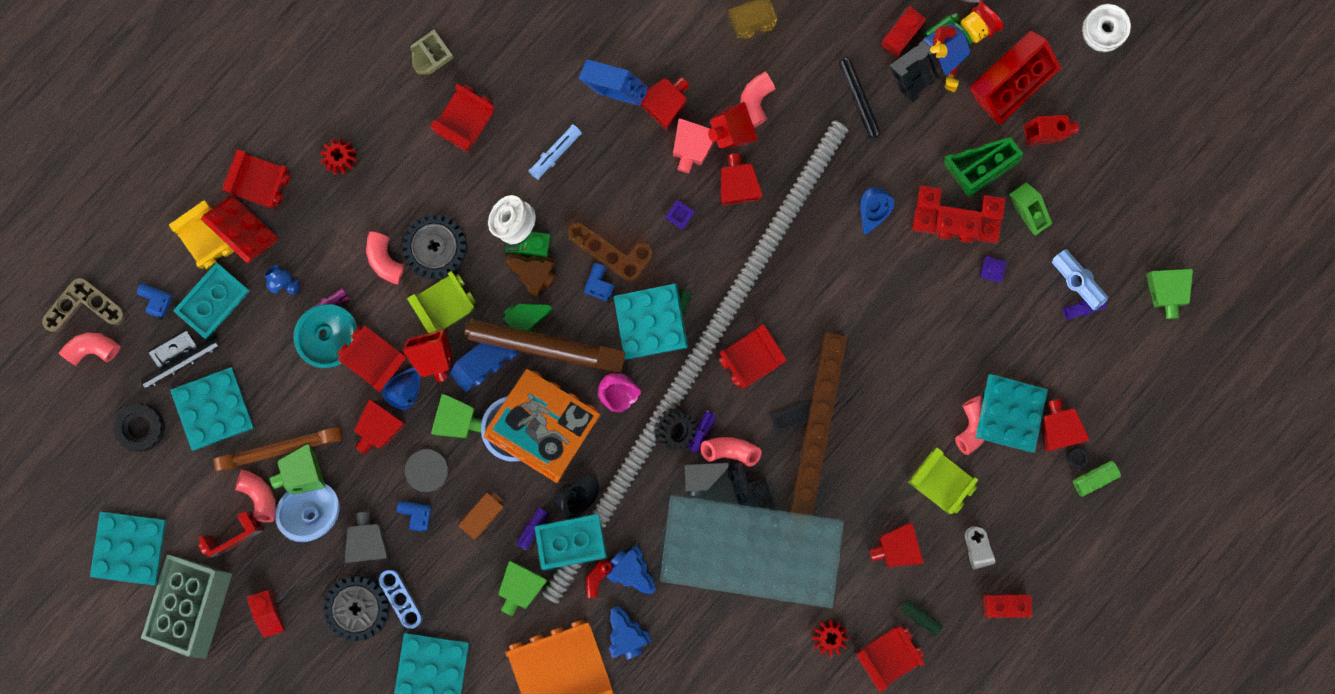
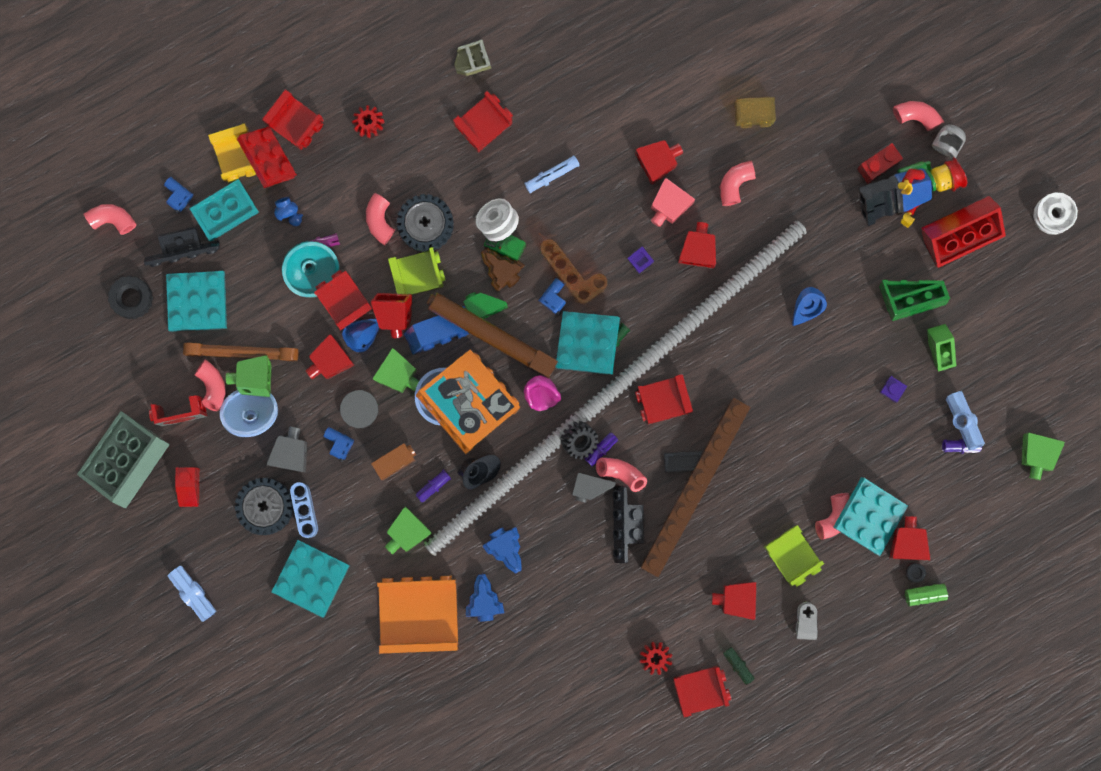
camera: 25 degrees right, 0 degrees up
(77, 300) = (114, 174): dark tan beam -> none
(128, 548) = (90, 396): teal plate -> none
(570, 542) = (461, 507): teal plate -> none
(595, 576) = (474, 542): red arm -> none
(613, 82) = (619, 130): blue window -> none
(732, 127) = (708, 199): red torso -> none
(752, 551) = (612, 563): clear light blue plate -> none
(859, 97) = (825, 209): black axle -> none
(956, 222) = (874, 339): red bracket -> none
(1007, 605) = (815, 679): red brick -> none
(1049, 129) = (979, 285): red torso -> none

